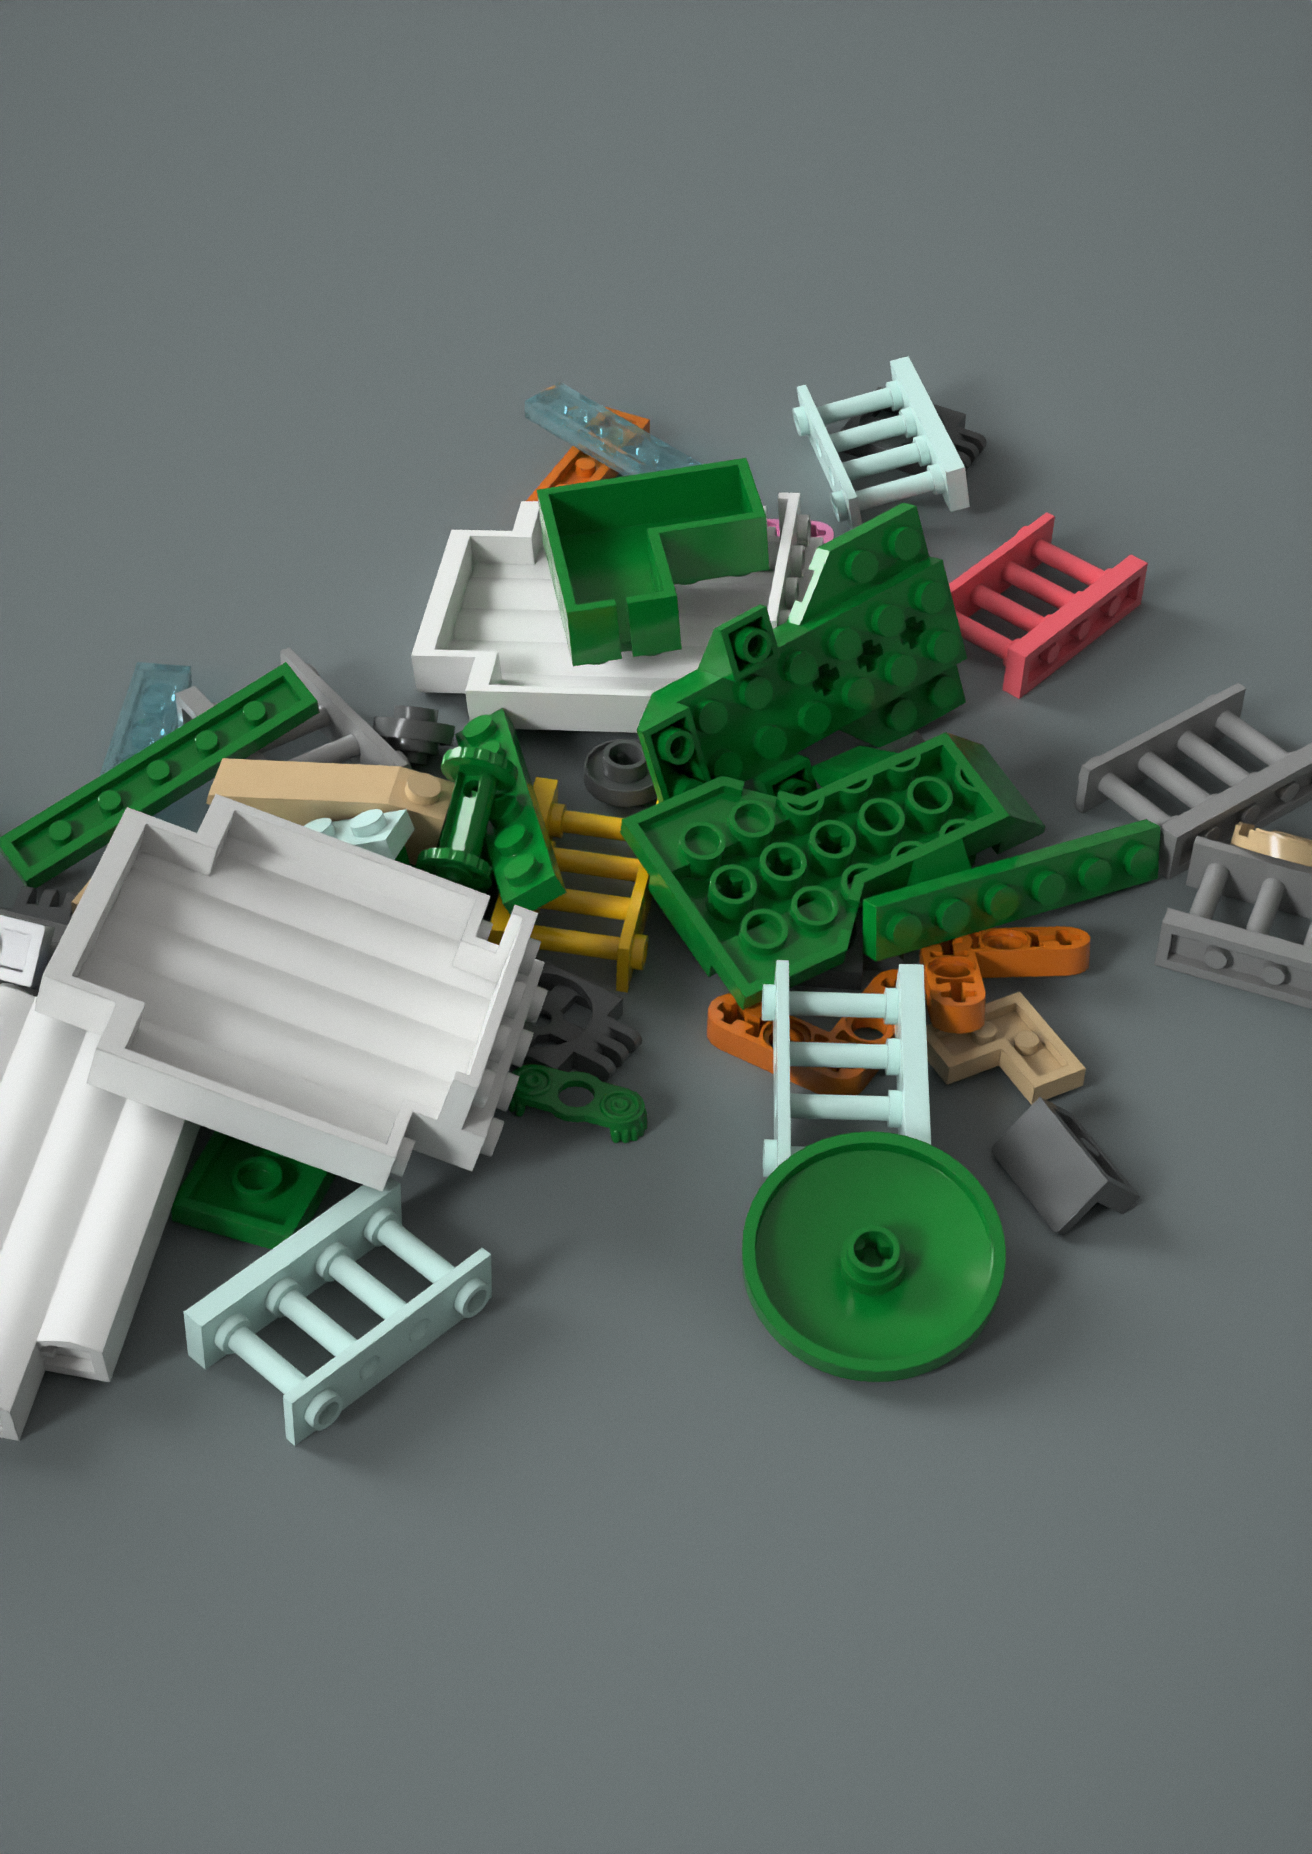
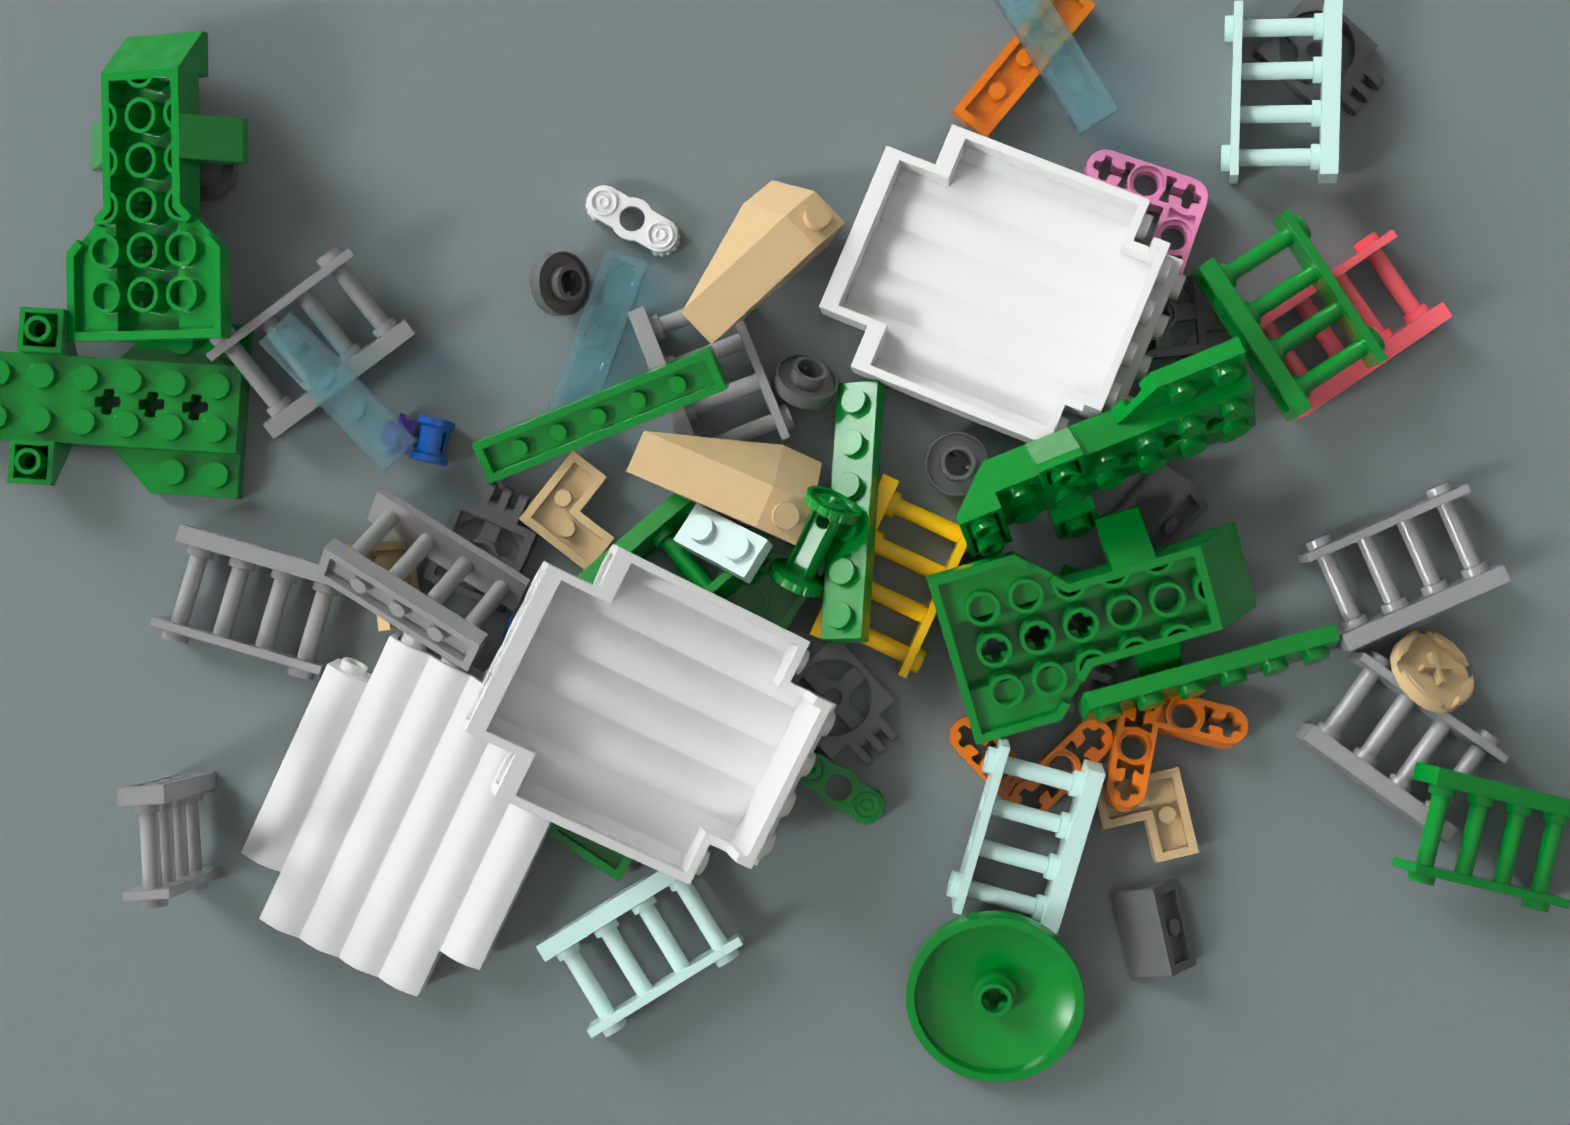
camera: 20 degrees right, 45 degrees up
(84, 697) = (560, 283): none -> dark grey plate
(193, 649) = (657, 232): none -> white piece
(342, 624) = (762, 250): none -> tan wedge
(633, 537) = (1020, 245): green piece -> none
(1007, 552) = (1266, 354): none -> green fence

